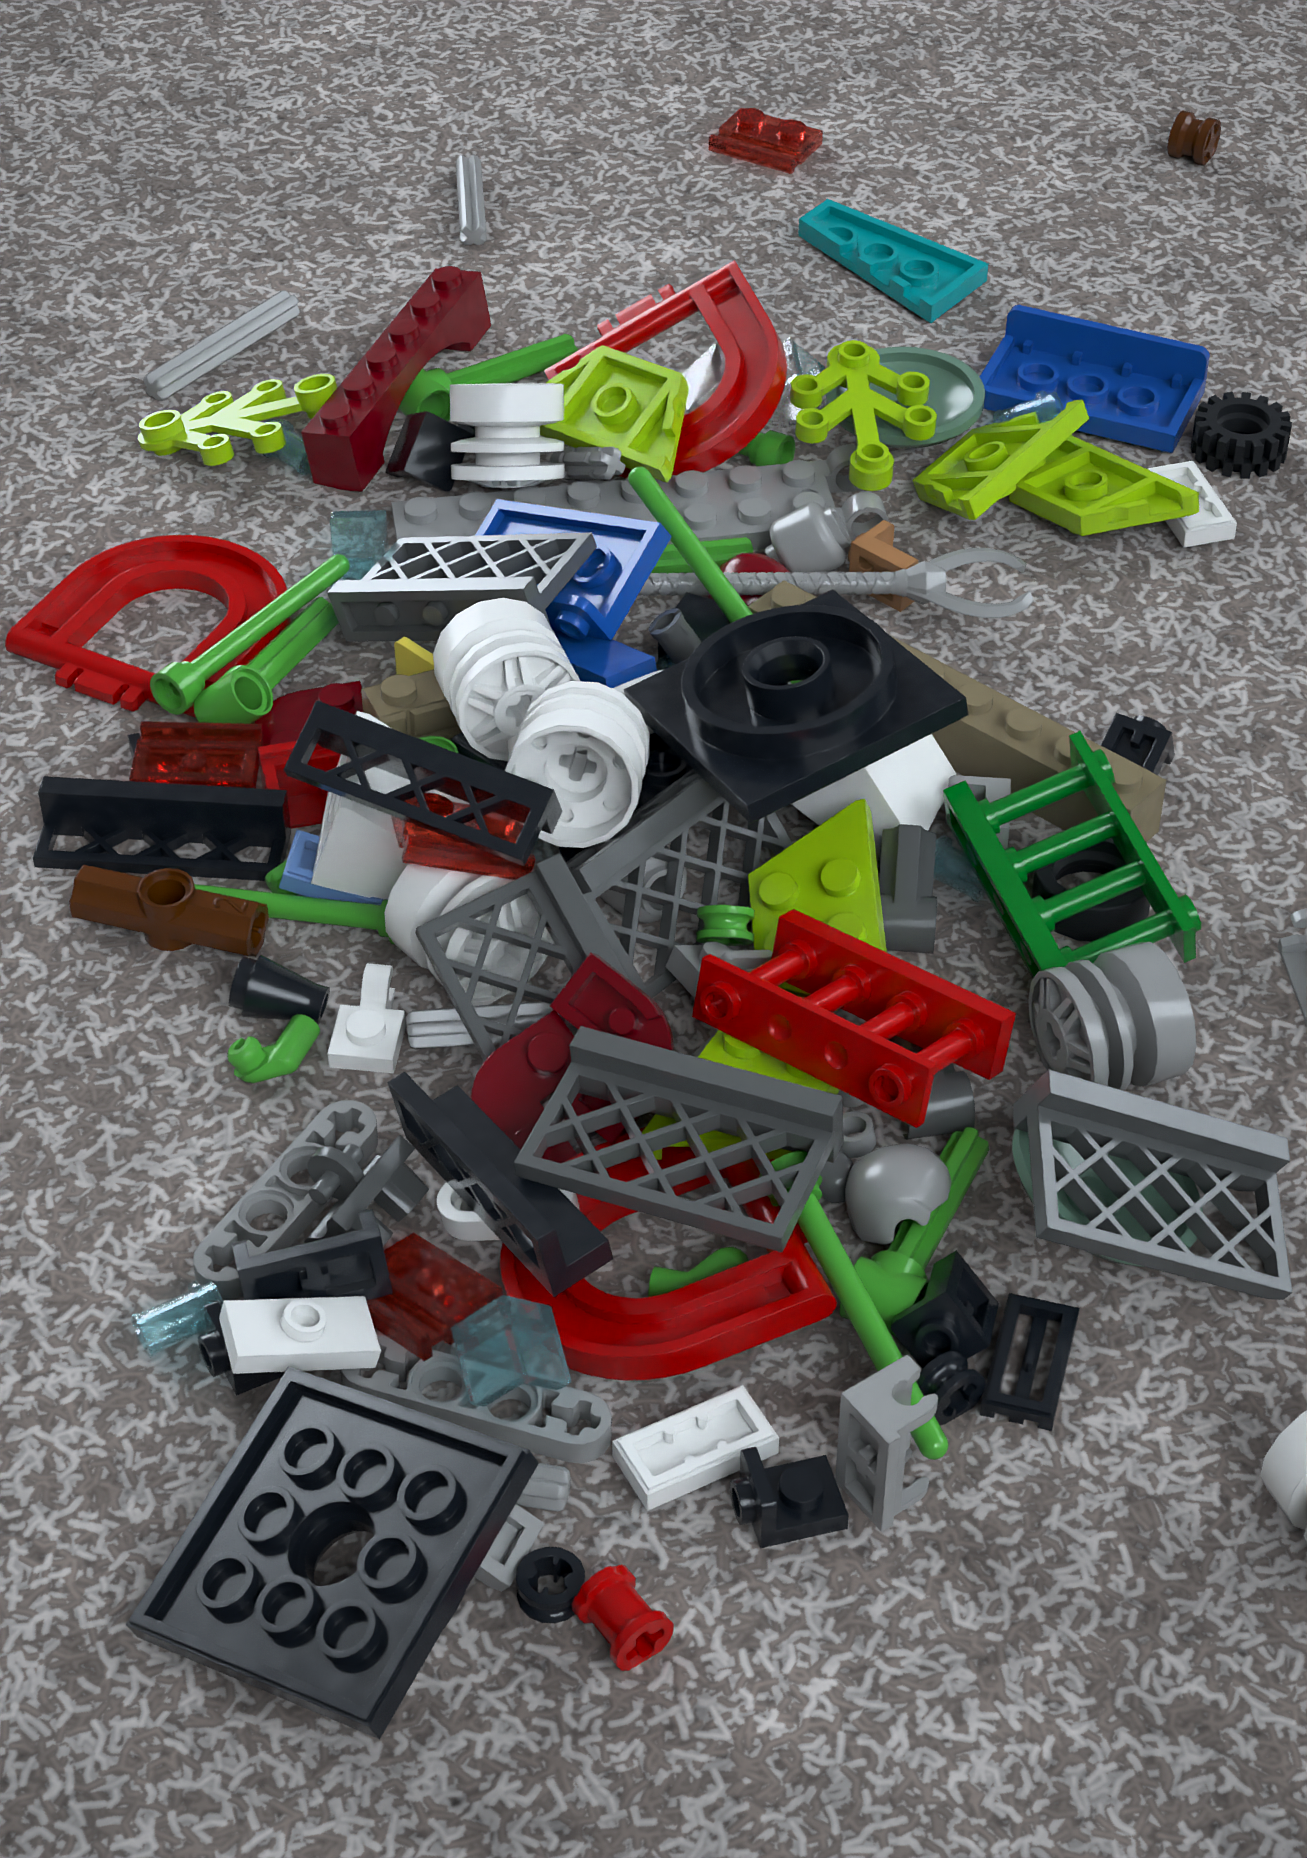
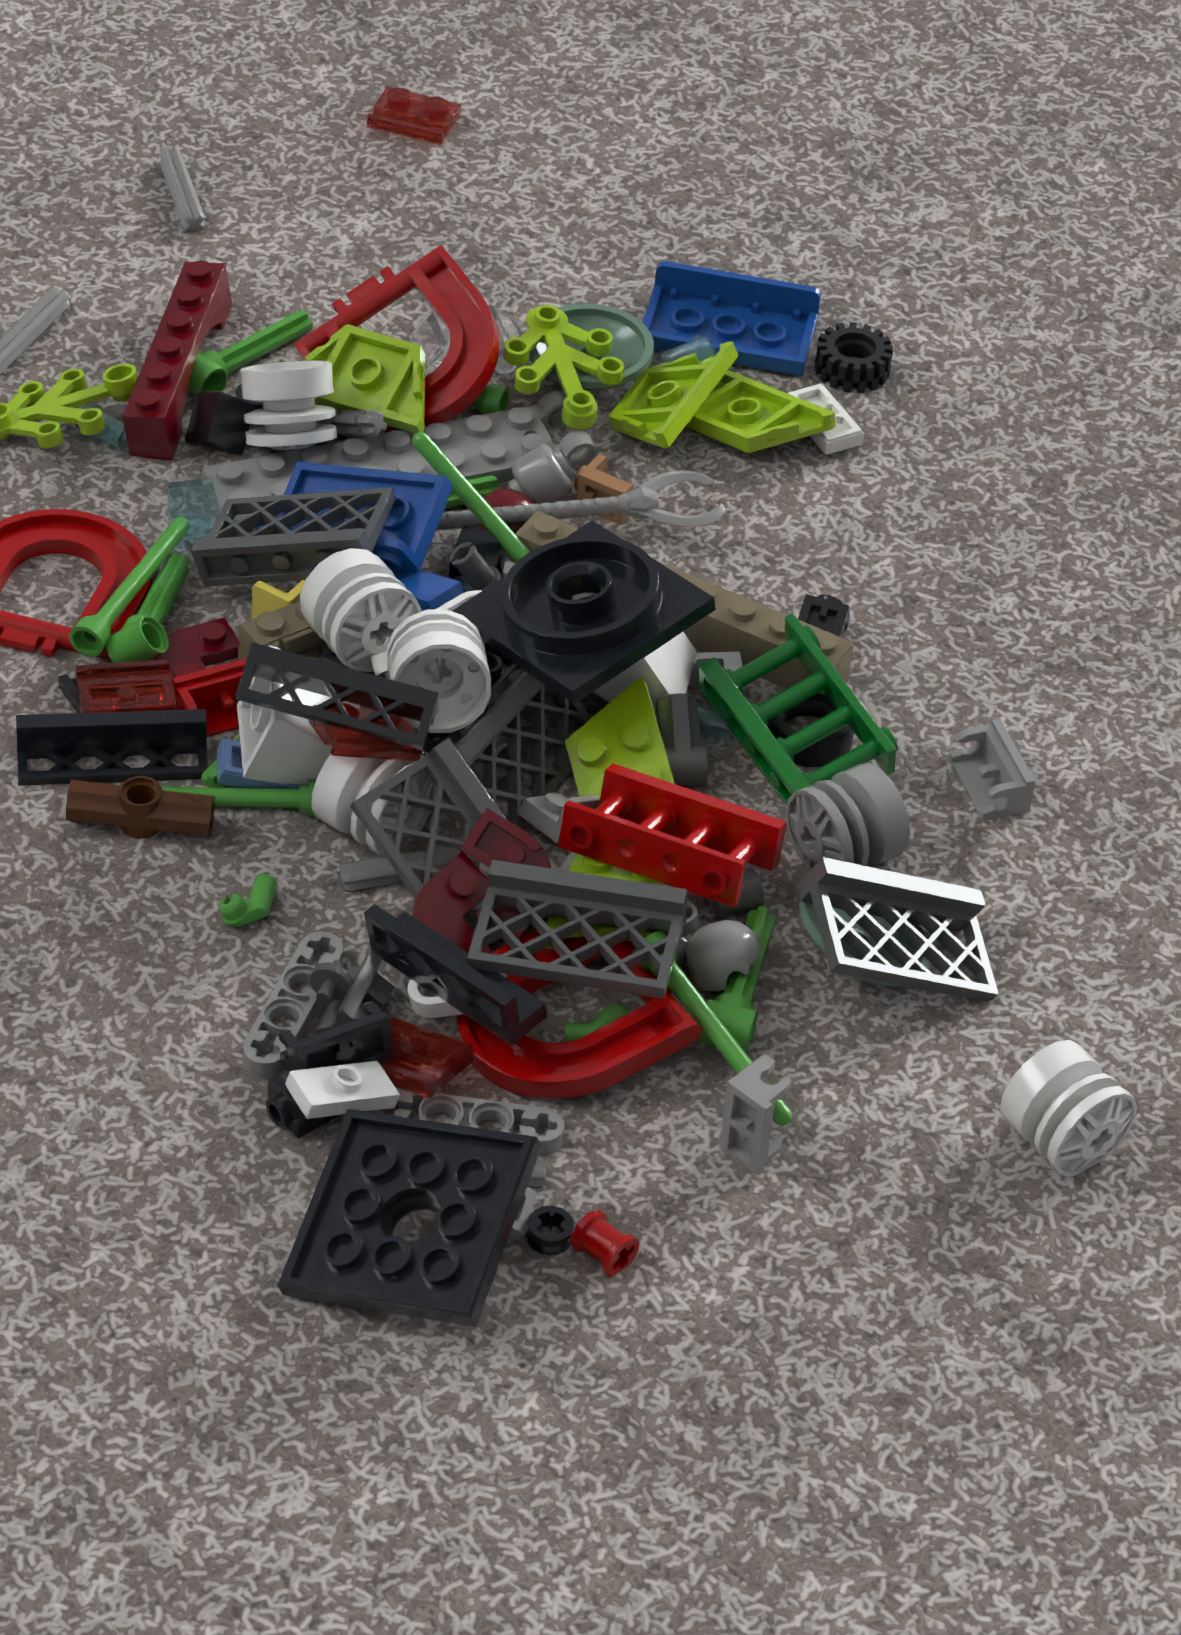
camera: 15 degrees left, 0 degrees up
(175, 1318) = (243, 1091): clear light blue pin -> none
(275, 992) = (238, 860): black cone -> none
(372, 1033) = (314, 884): white plate -> none
(507, 1347) = (486, 1083): clear light blue panel -> none
(693, 1447) = (623, 1135): white plate -> none
(725, 924) = (556, 779): bright green bush -> none
(787, 1499) = (692, 1160): black bracket -> none
(896, 261) = (554, 224): teal wing -> none
(951, 1317) = (777, 1033): black bracket -> none
(953, 1383) = (785, 1067): black bush -> none
(1020, 1406) = (831, 1085): black tile -> none
(1194, 137) = (769, 91): reddish brown wheel -> none

